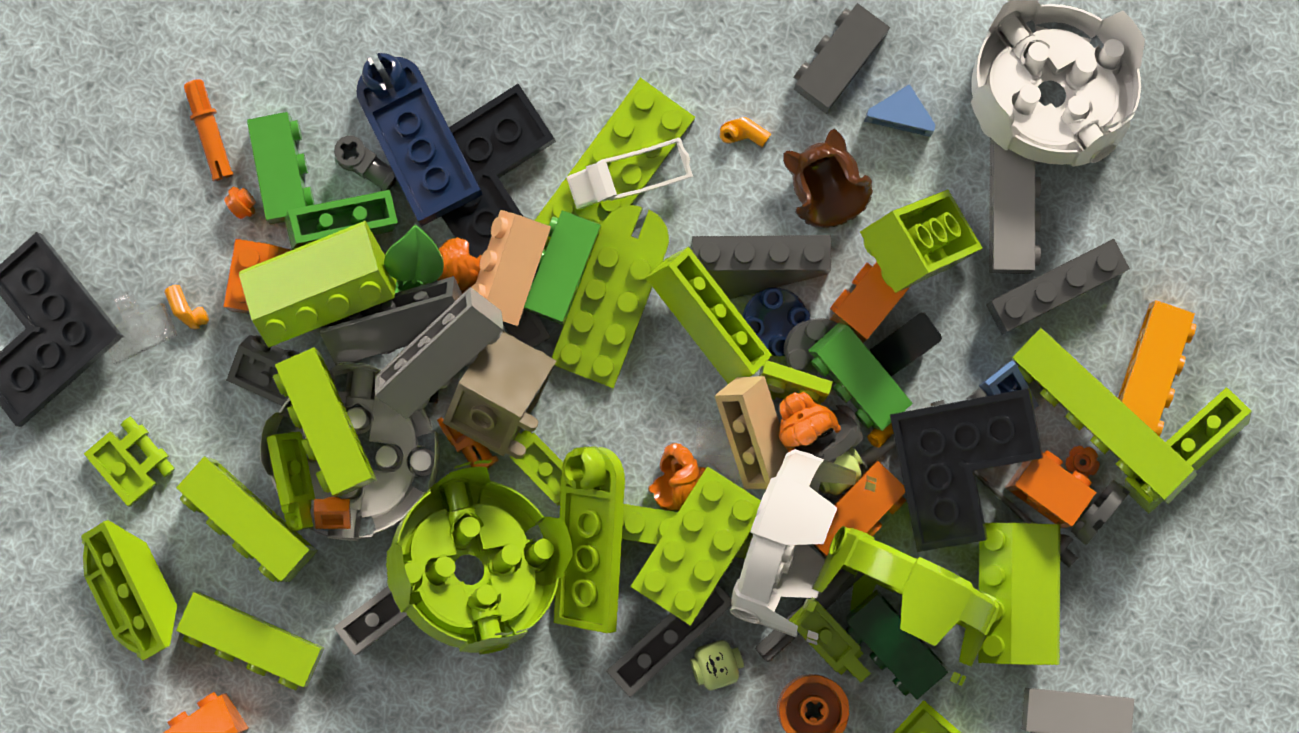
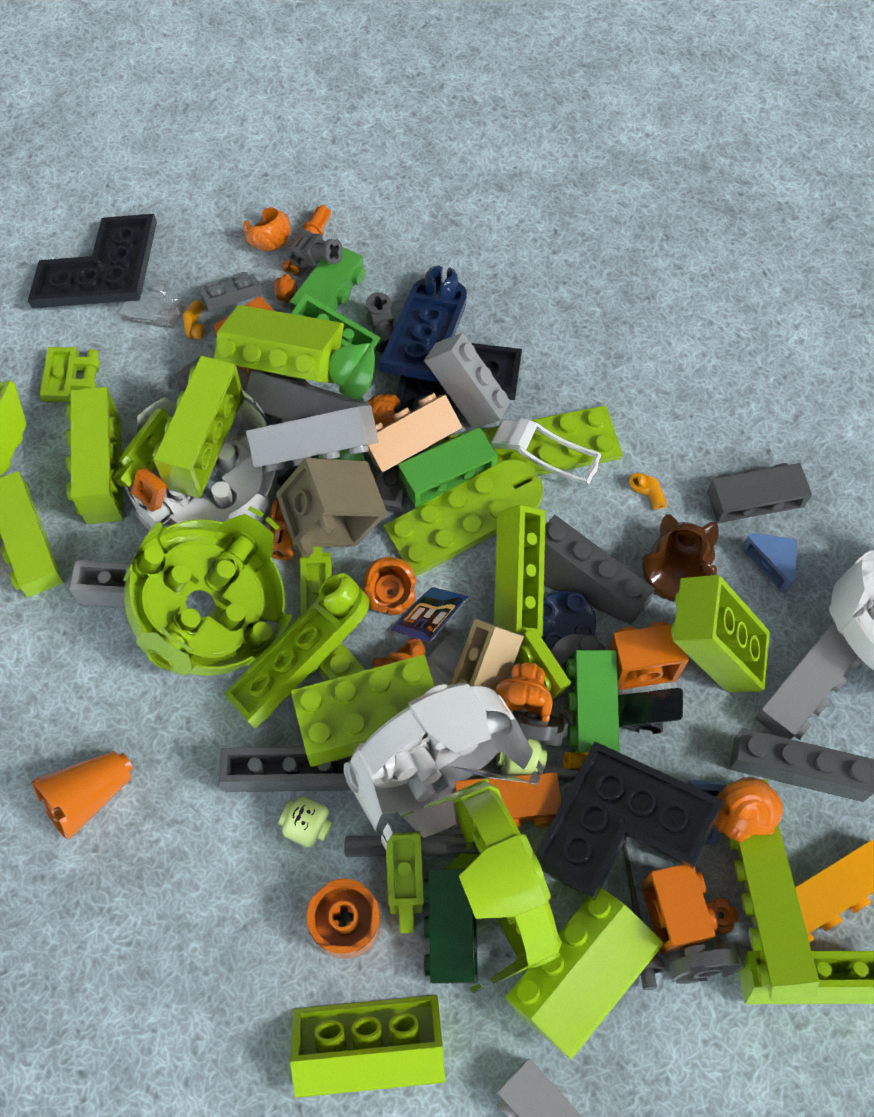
camera: 45 degrees right, 20 degrees down
(164, 154) = (270, 233): none -> orange hair
(198, 254) = (239, 289): none -> dark grey plate
(237, 147) = (312, 249): none -> dark grey connector
(510, 171) = (467, 381): none -> light grey brick
(603, 402) = (393, 575): none -> orange hair
(661, 412) = (429, 614): none -> sticker
(849, 507) = (495, 775): none -> sticker
(1047, 370) = (748, 809): none -> orange hair

